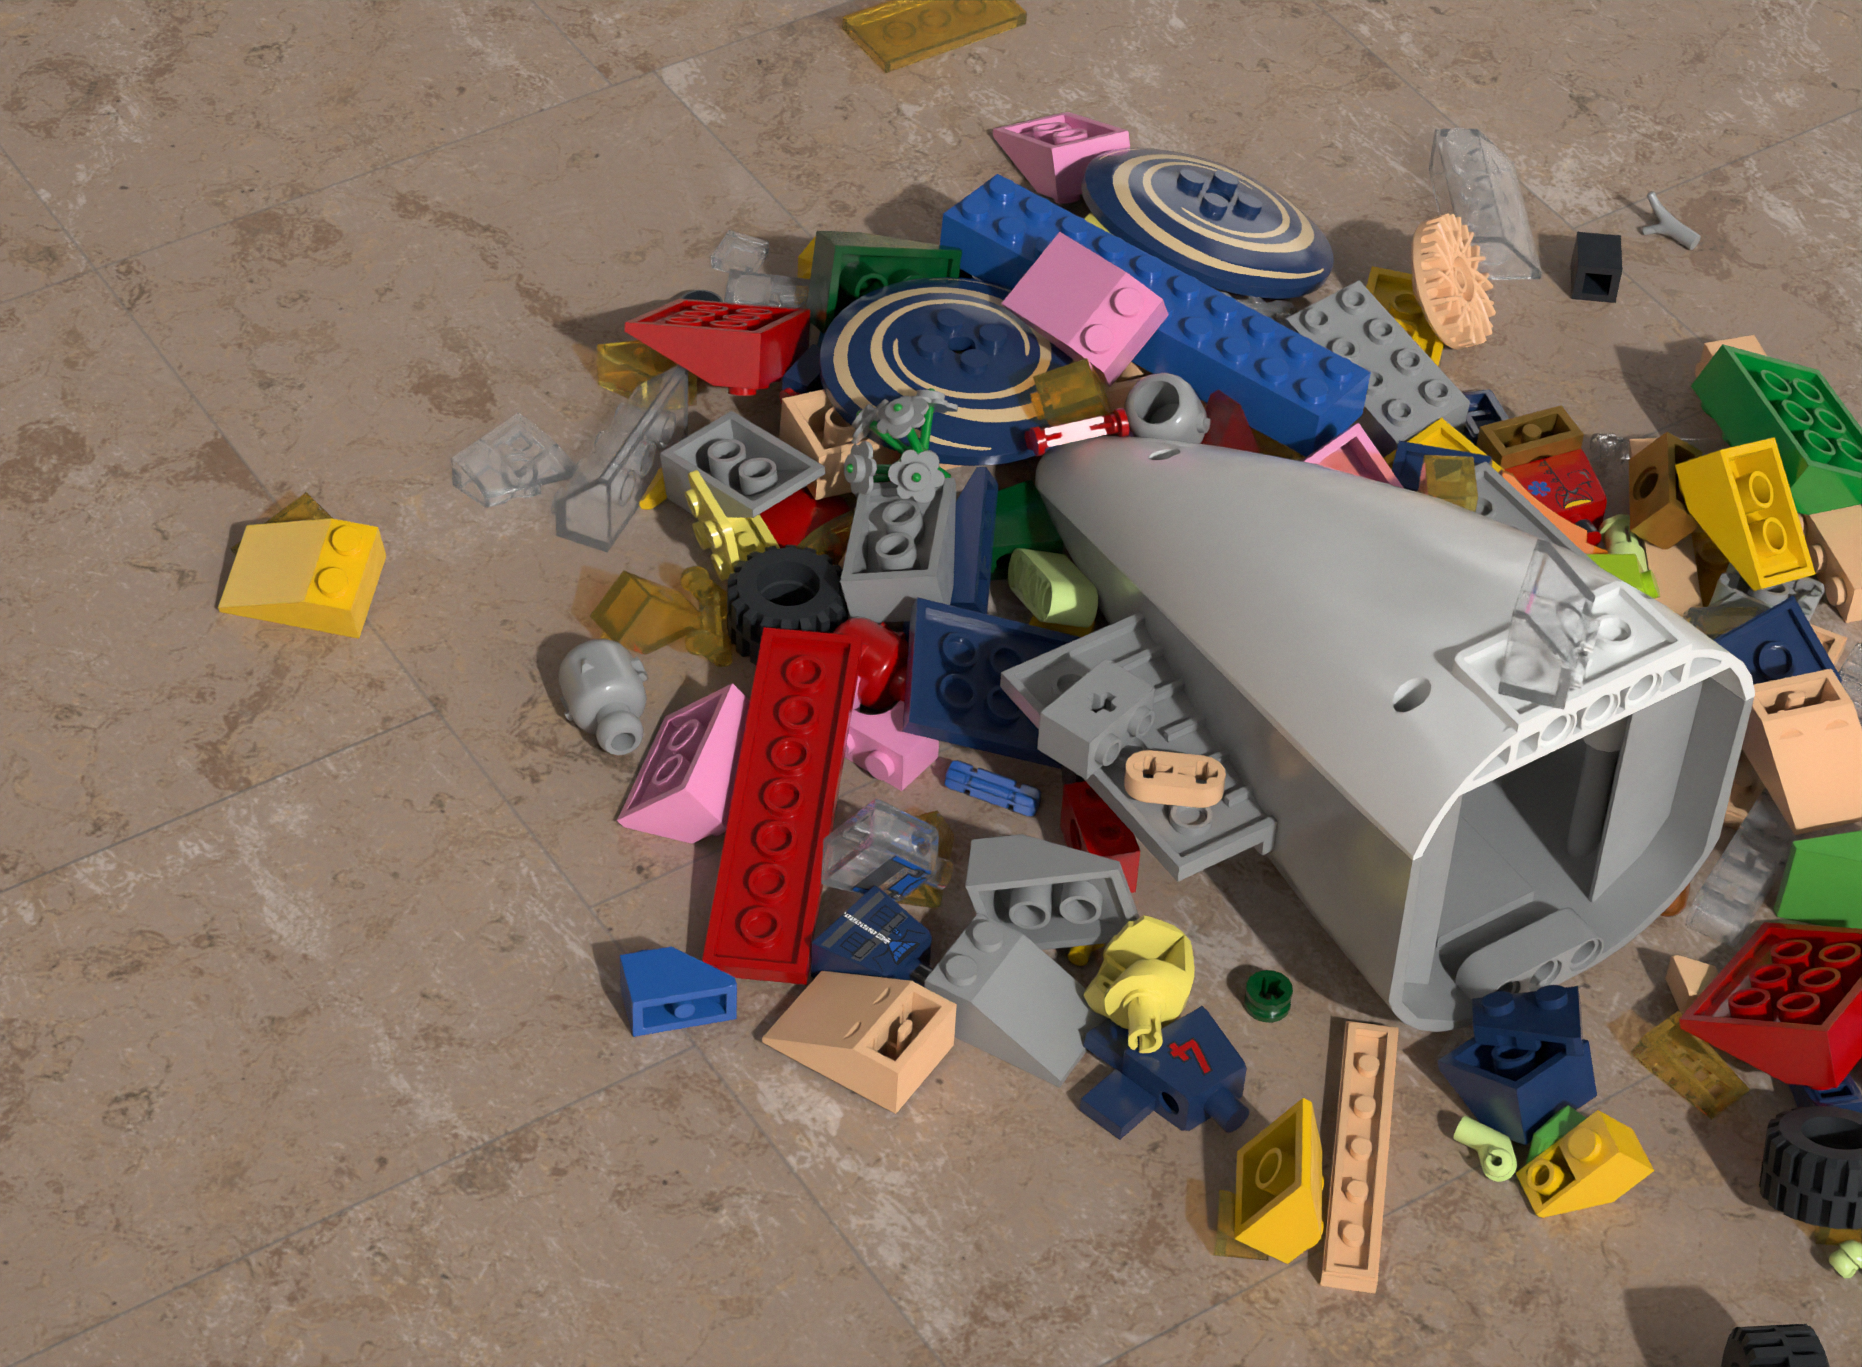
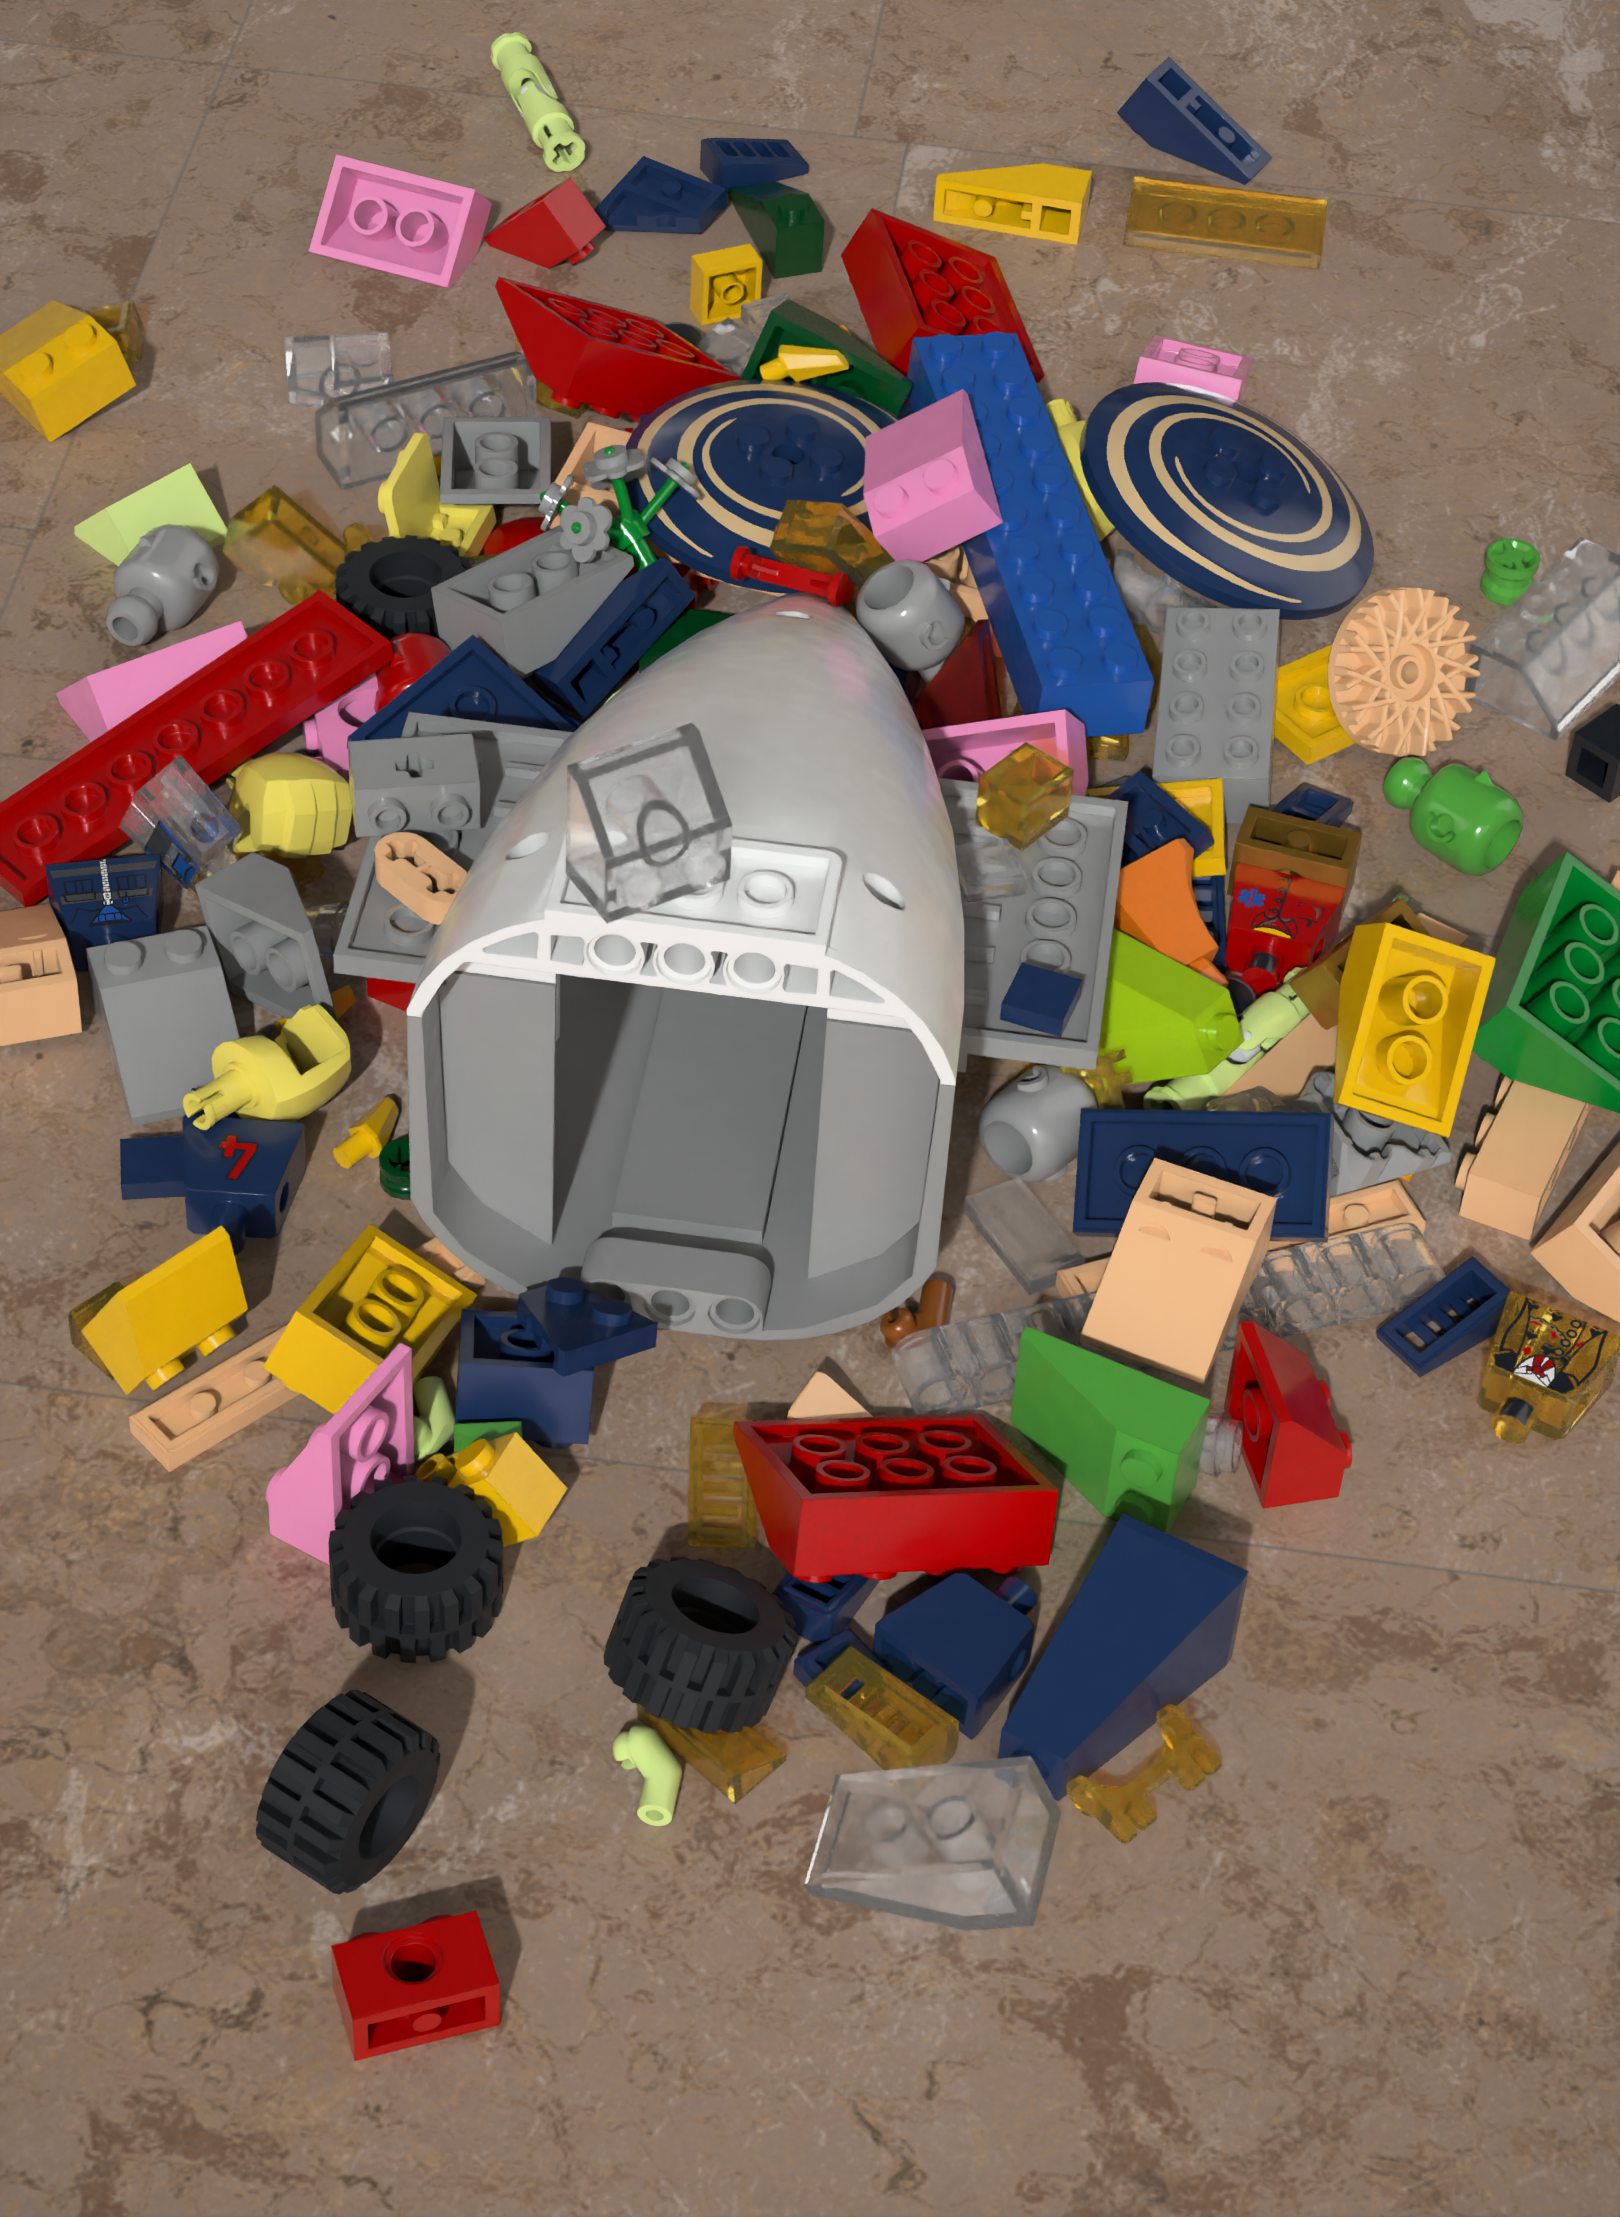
camera: 40 degrees right, 0 degrees up
(399, 184) = (533, 94): none -> yellowish green piece
(407, 325) = (399, 222): none -> bright pink slope
(513, 270) = (549, 228): none -> red slope
(522, 652) = (170, 500): none -> yellowish green slope
(558, 206) = (660, 200): none -> dark blue wing
(576, 144) = (749, 161): none -> dark blue slope
(660, 177) = (782, 226): none -> dark green slope
(690, 245) = (723, 282): none -> yellow piece
(799, 74) = (1016, 200): none -> yellow slope
(838, 184) = (926, 287): none -> red slope
(878, 274) = (803, 363): none -> yellow bar
(915, 782) = (289, 805): none -> light yellow piece
(1216, 989) = (368, 1134): none -> yellow bar
(1397, 177) = (1509, 570): none -> bright green wheel
(1409, 1115) = (360, 1314): none -> yellow slope
(1512, 1198) = (350, 1453): none -> bright pink slope
(1569, 361) = (1456, 813): none -> bright green piece
(1611, 1274) = (424, 1610): none -> black tyre

